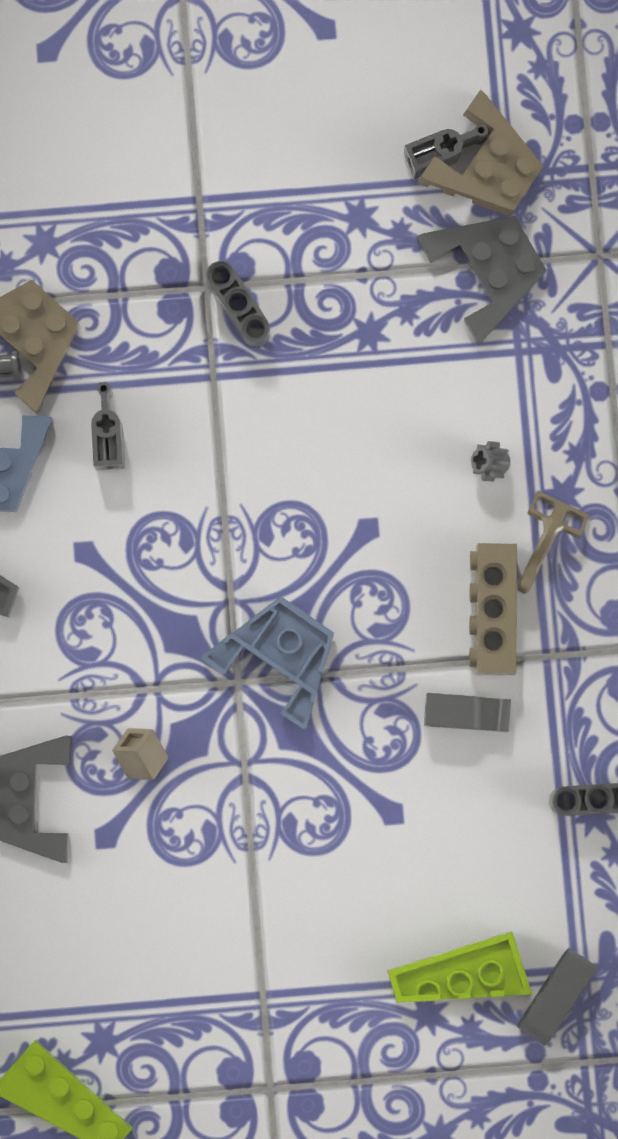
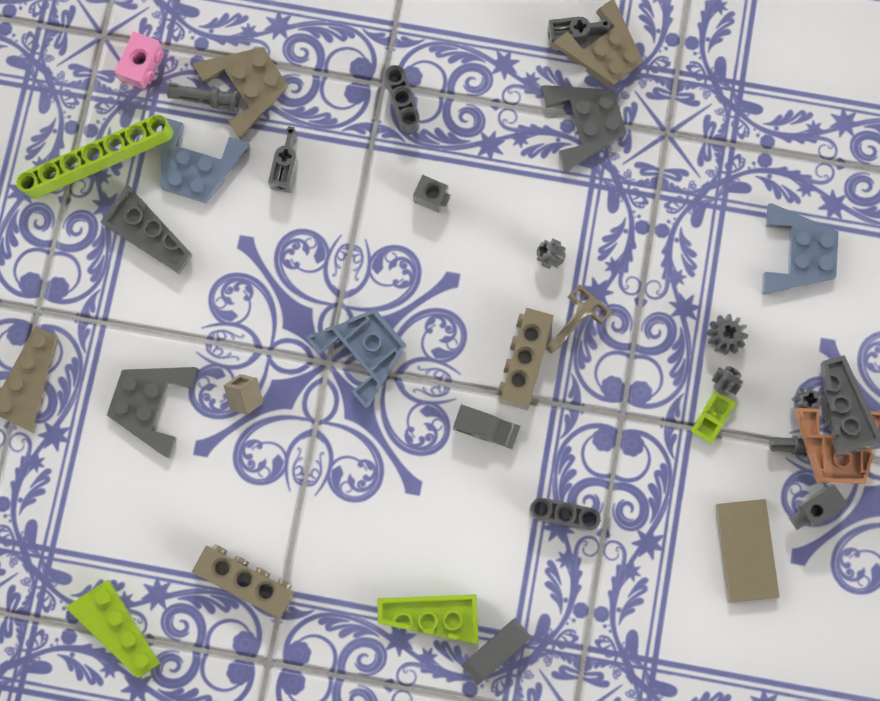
camera: 15 degrees right, 5 degrees down
(159, 994) = (208, 569): none -> dark tan brick
(301, 412) = (428, 184): none -> dark grey brick

